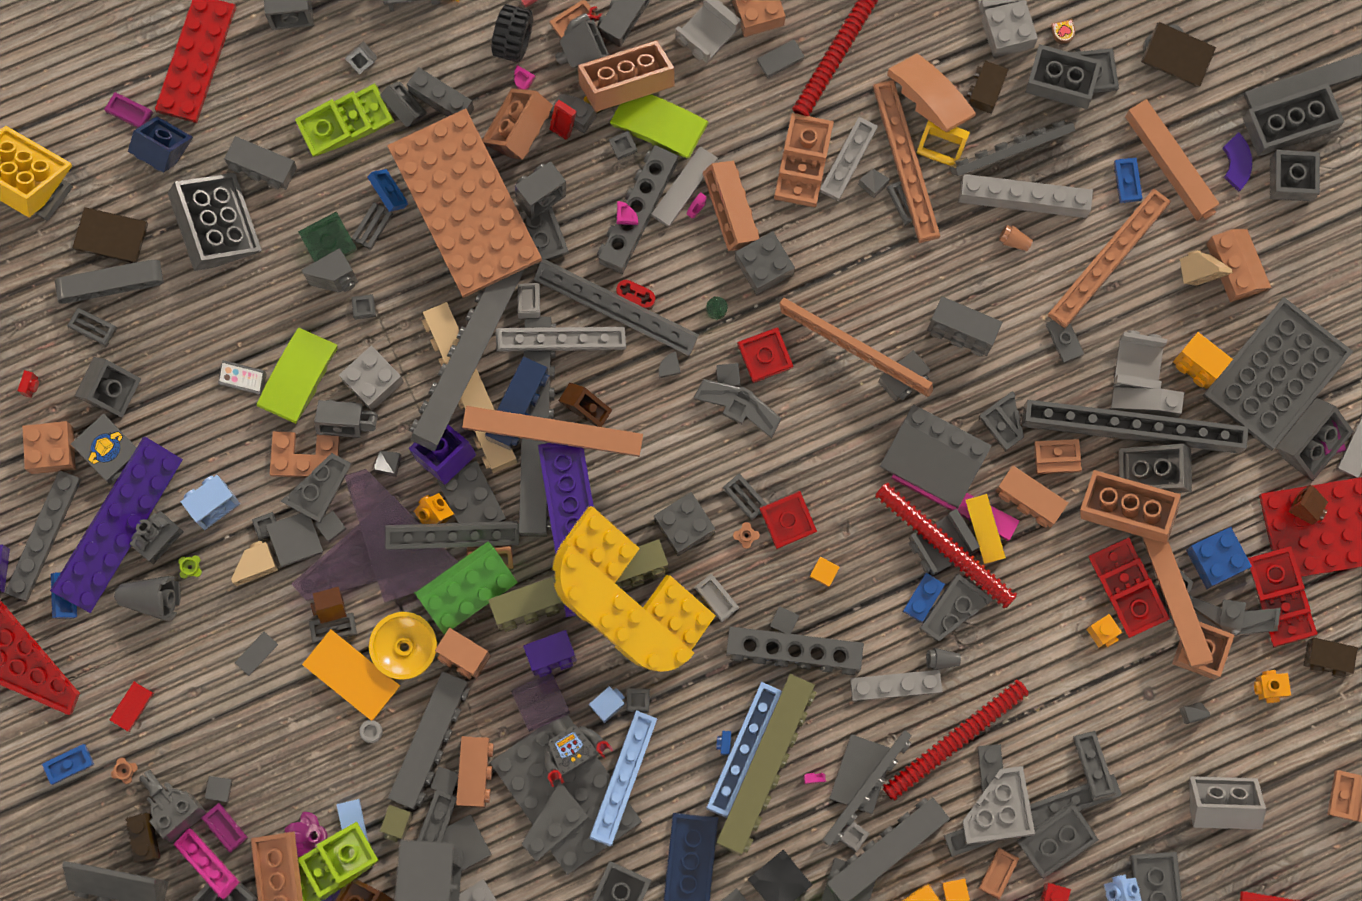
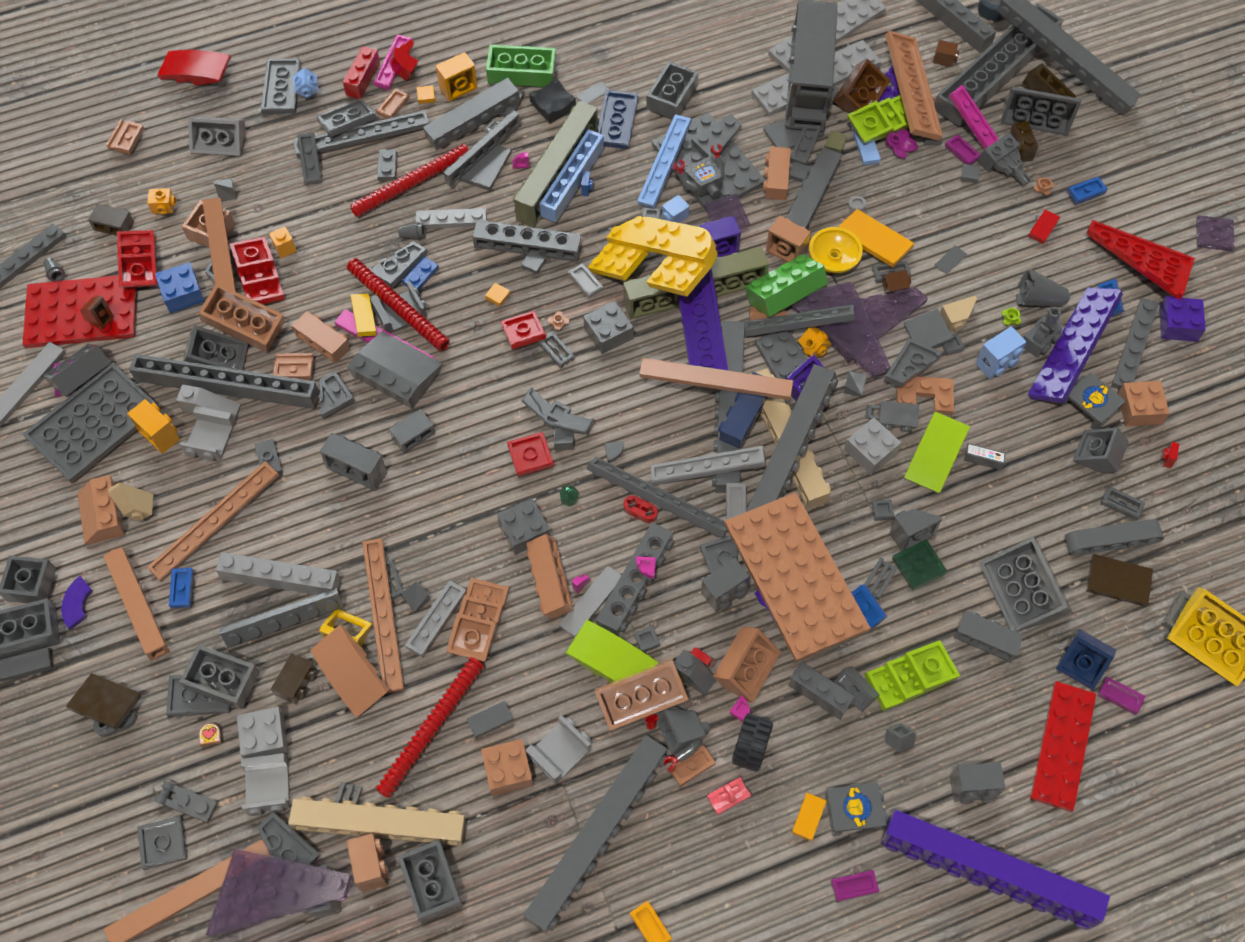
camera: 175 degrees left, 15 degrees down
(330, 526) = (897, 341): dark grey tile -> none
(585, 404) = (688, 419): reddish brown slope -> none
(856, 347) = (451, 446): nougat tile -> none
(1001, 810) = (384, 130): light grey plate -> none
(1015, 238) = (295, 541): nougat cone -> none
(1234, 618) = (177, 246): dark grey plate -> none

